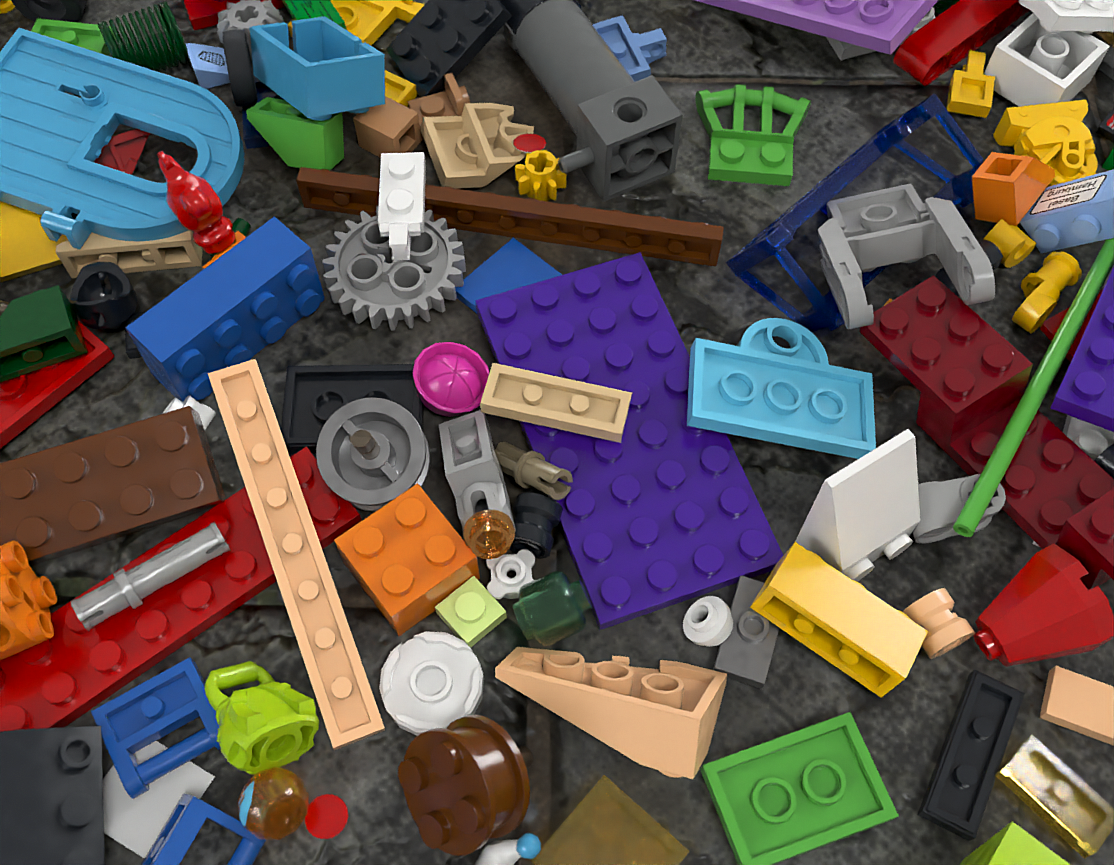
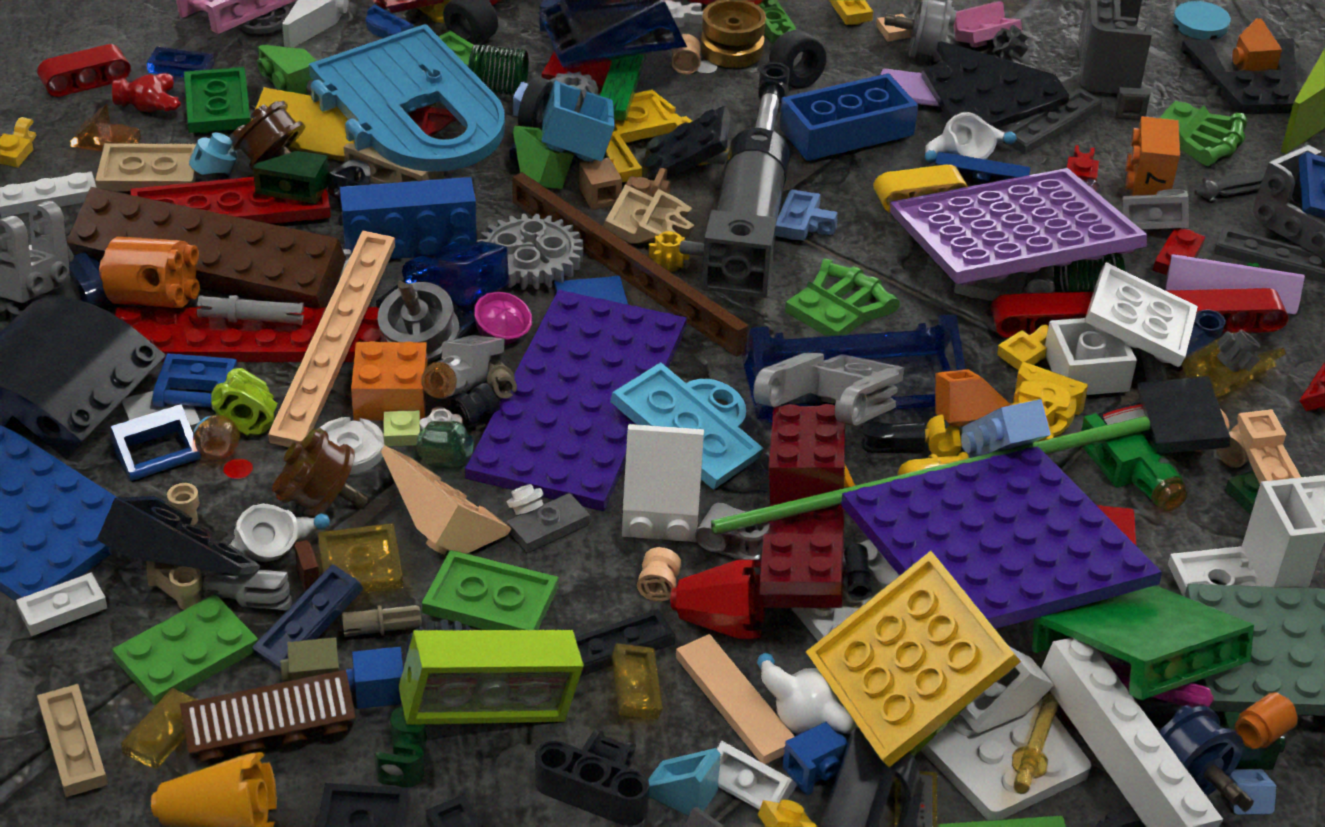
camera: 35 degrees right, 20 degrees down
(196, 206) = (434, 150): red animal -> none
(357, 347) = (462, 270): none -> clear blue brick
(401, 200) = (560, 214): white hinge -> none
(529, 143) = (678, 228): red sticker -> none
(556, 402) = (545, 350): tan plate -> none
(840, 620) = (597, 532): yellow brick -> none

